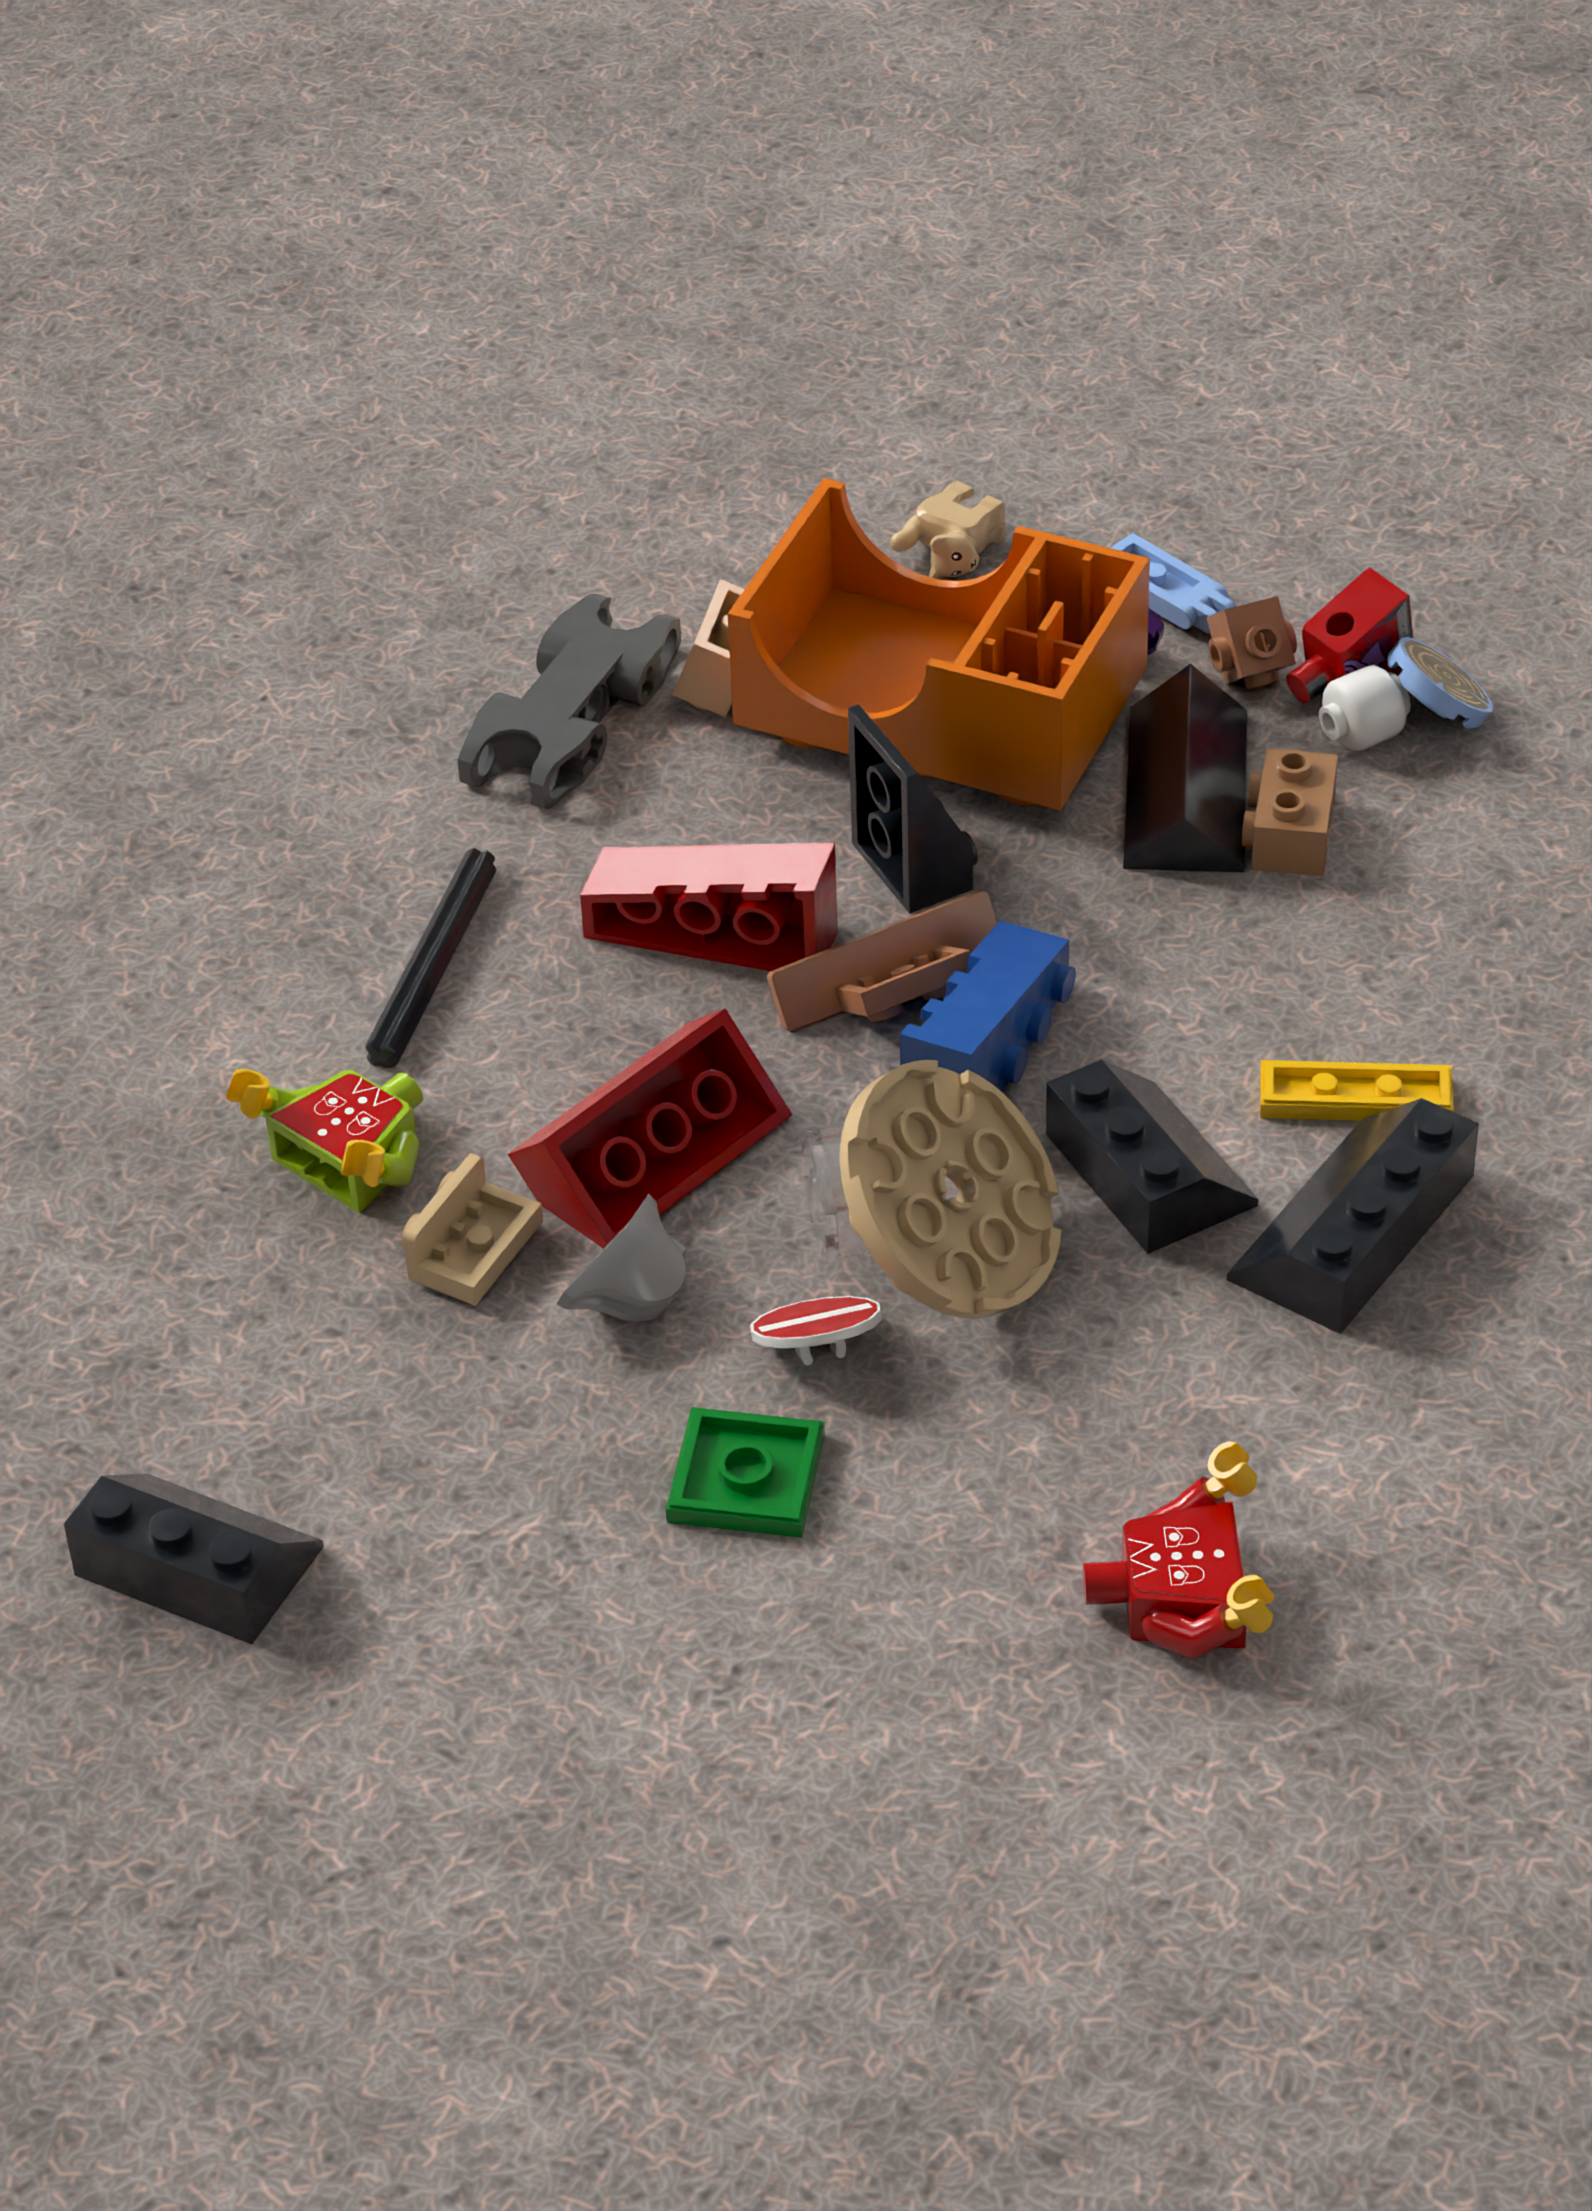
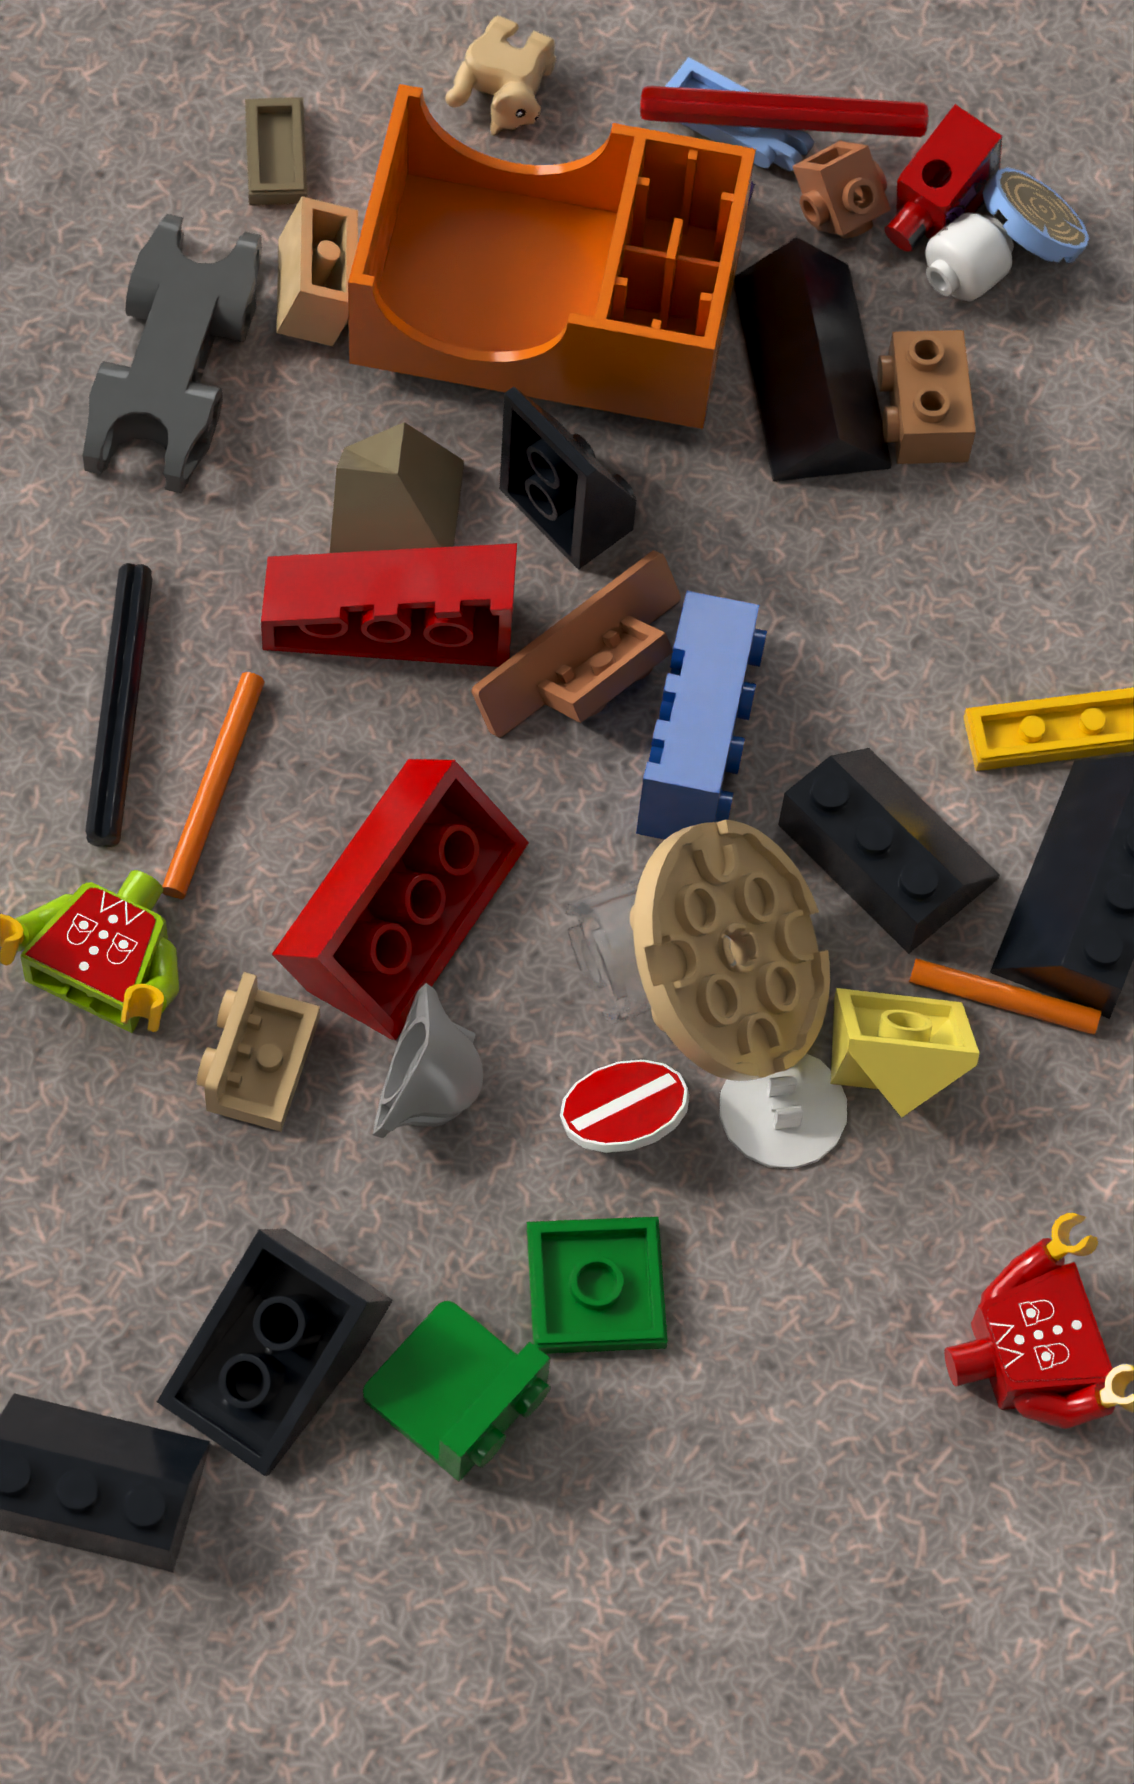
camera: 20 degrees left, 20 degrees up
(407, 1465) = (273, 1348): none -> black slope
(499, 1031) = (213, 785): none -> orange bar
(580, 1529) = (457, 1389): none -> green bracket
(718, 555) = (275, 150): none -> dark tan tile
(749, 810) = (395, 493): none -> dark tan slope
(981, 1361) = (786, 1115): none -> white piece
(1099, 1314) = (900, 1045): none -> light yellow slope
(1235, 1297) = (1005, 996): none -> orange bar
(1237, 579) = (784, 111): none -> red axle

